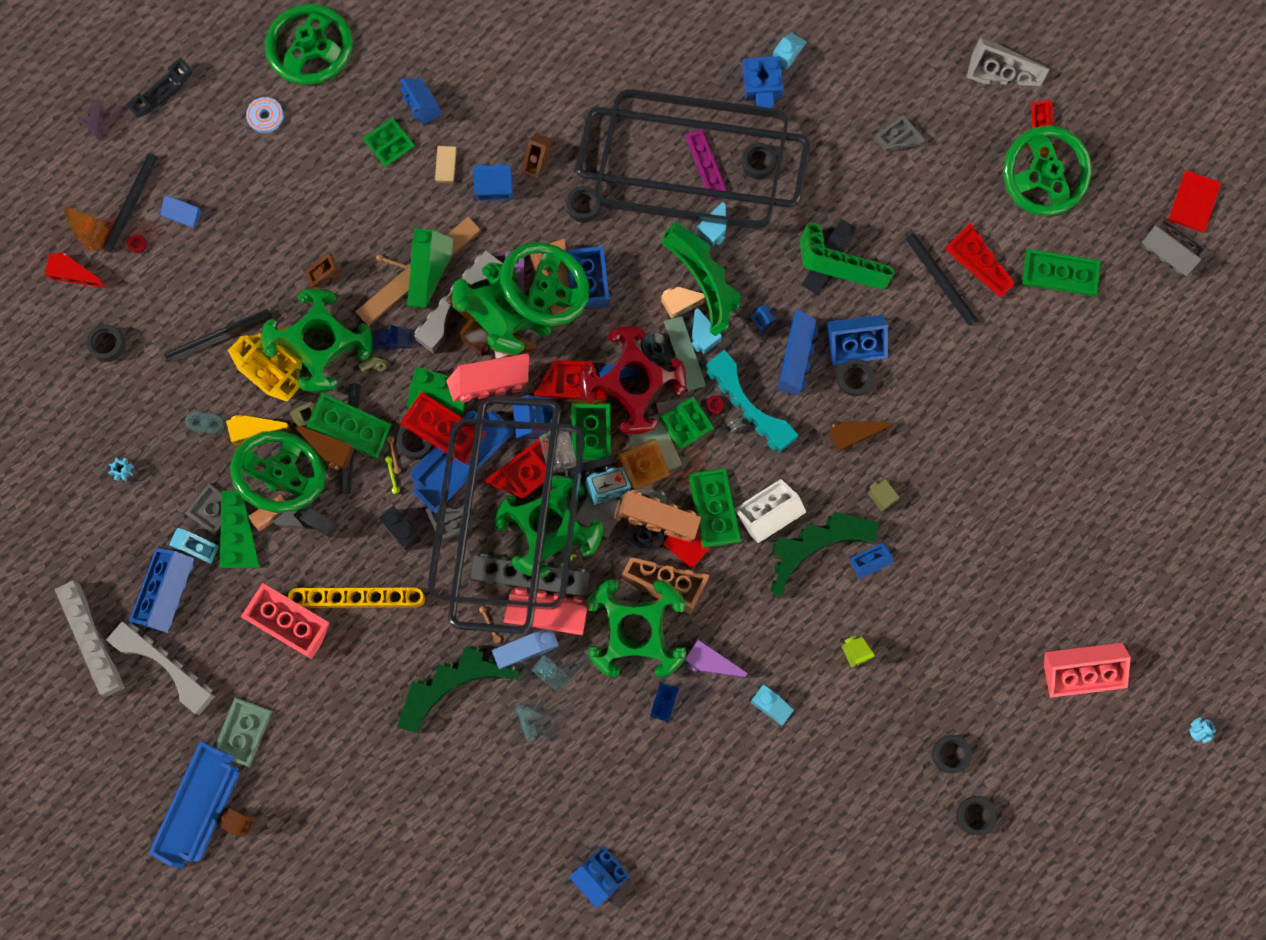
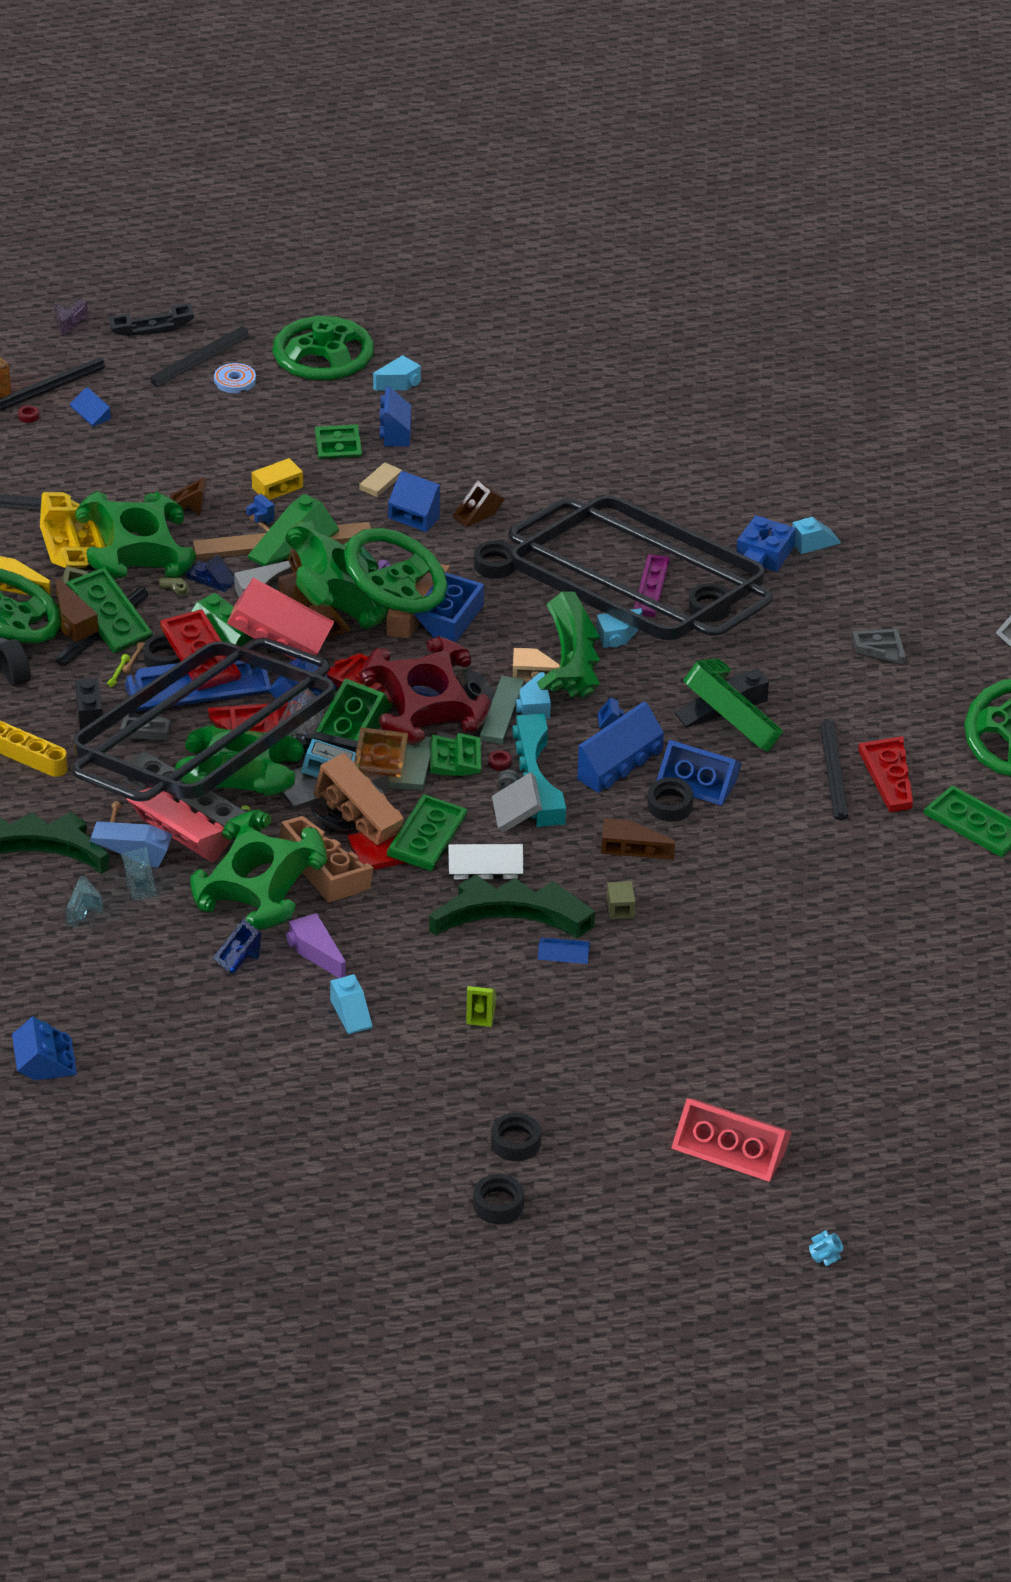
camera: 30 degrees right, 35 degrees down
(222, 106) = (199, 356): none -> black axle
(373, 211) = (277, 479): none -> yellow brick
(385, 249) = (262, 509): none -> blue tile
(387, 45) = (398, 375): none -> medium azure slope
(759, 446) = (516, 802): none -> light grey tile

